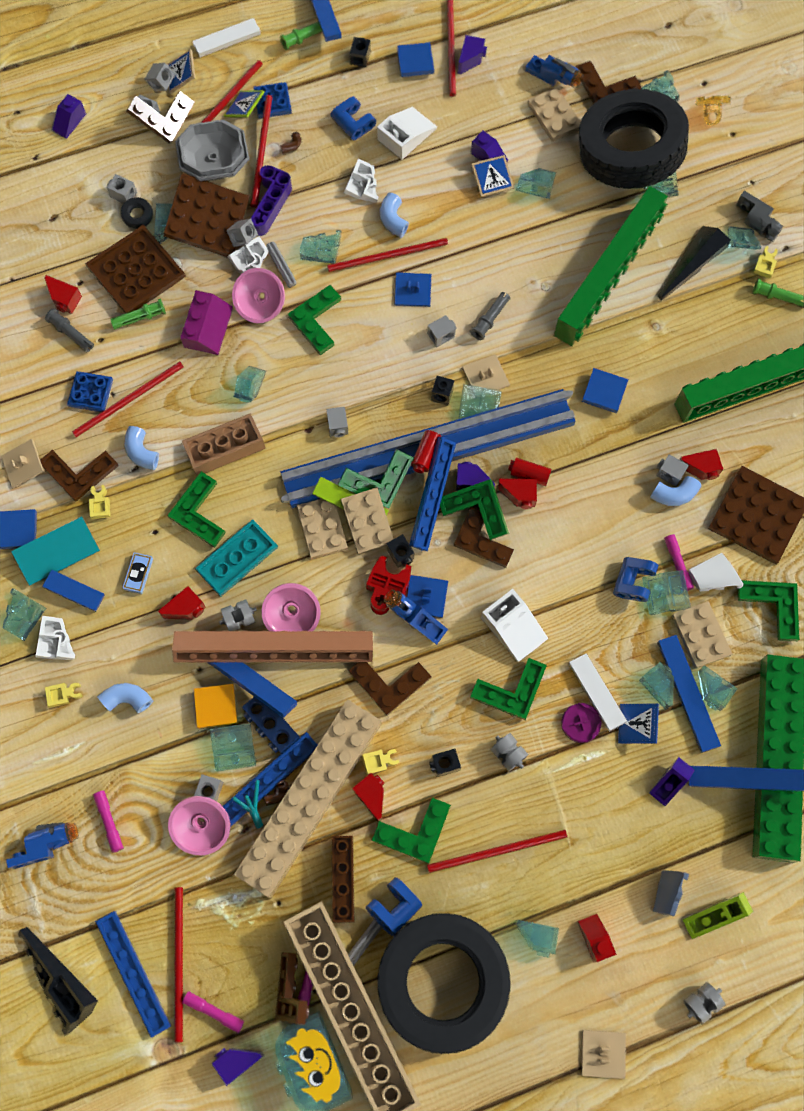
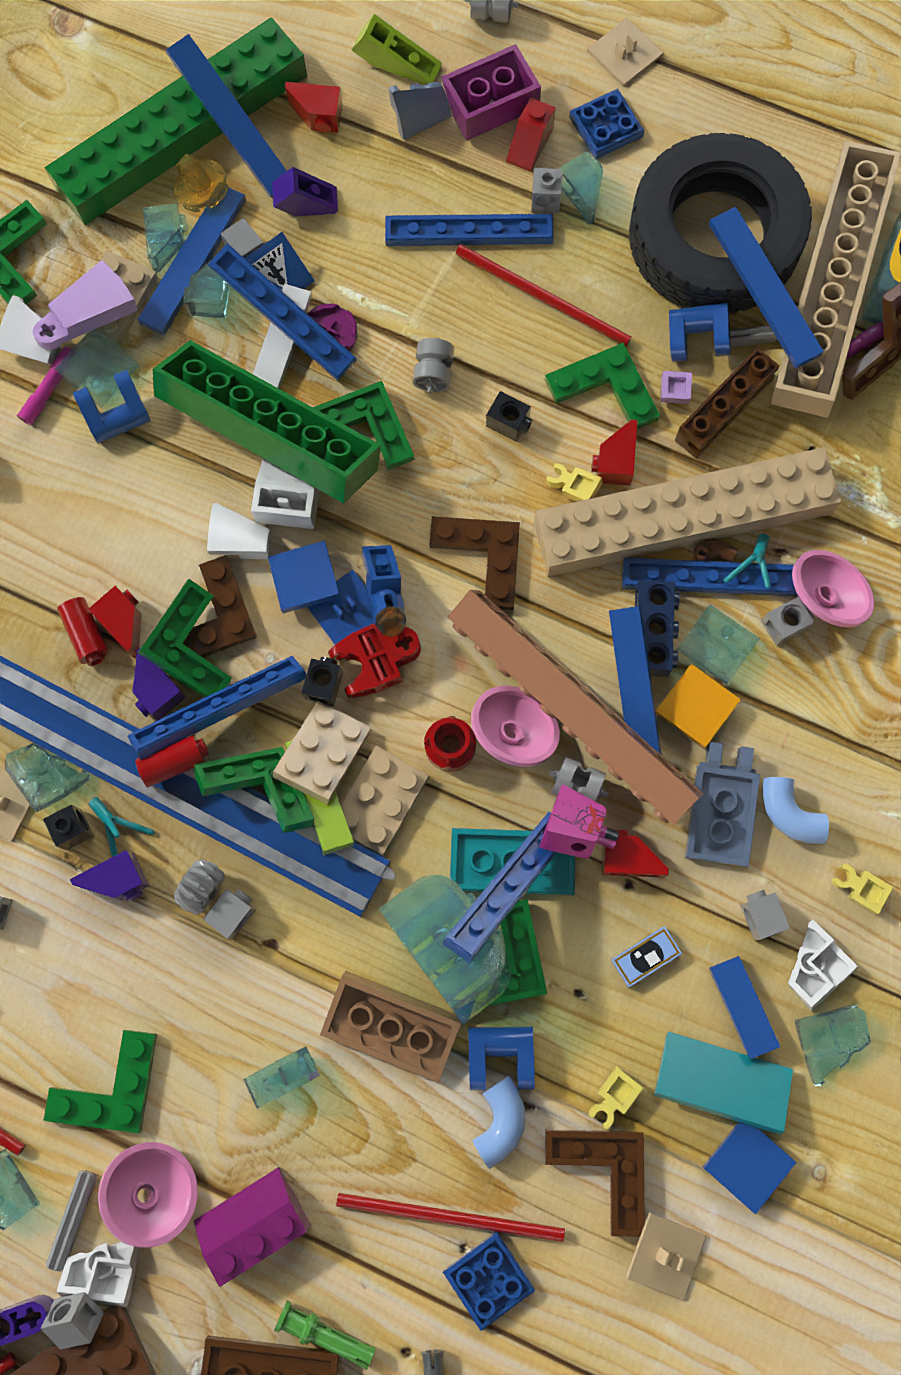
camera: 130 degrees left, 5 degrees up
(98, 638) = (764, 915): none -> light grey brick
(159, 671) = (725, 814): none -> sand blue tile
(169, 479) = (501, 1043): none -> blue connector
(219, 591) = (576, 825): none -> dark pink torso
(222, 534) = (500, 896): none -> blue tile
(226, 490) = (422, 920): none -> clear light blue brick
(315, 569) = (444, 729): none -> red piece
(360, 418) = (199, 886): none -> light grey gear
(378, 864) = (676, 387): none -> lavender plate
(378, 953) = (766, 288): none -> blue tile
(401, 390) = (116, 877): none -> dark purple slope
(431, 410) = (109, 820): none -> teal plant
(459, 589) = (303, 577): none -> blue tile
(512, 576) = (236, 535): none -> white slope
(553, 637) = (266, 421): none -> green brick
(554, 911) = (546, 190): none -> light grey brick
(567, 993) = (606, 123): none -> blue tile
(572, 851) = (468, 229): none -> blue tile
(610, 703) = (282, 312): none -> blue tile
(643, 940) = (490, 91): none -> magenta slope
(671, 723) = (242, 238): none -> light grey brick
(702, 611) = (85, 306): none -> lavender piece
(722, 839) = (316, 105): none -> red slope
(728, 734) = (199, 183): none -> clear yellow tile

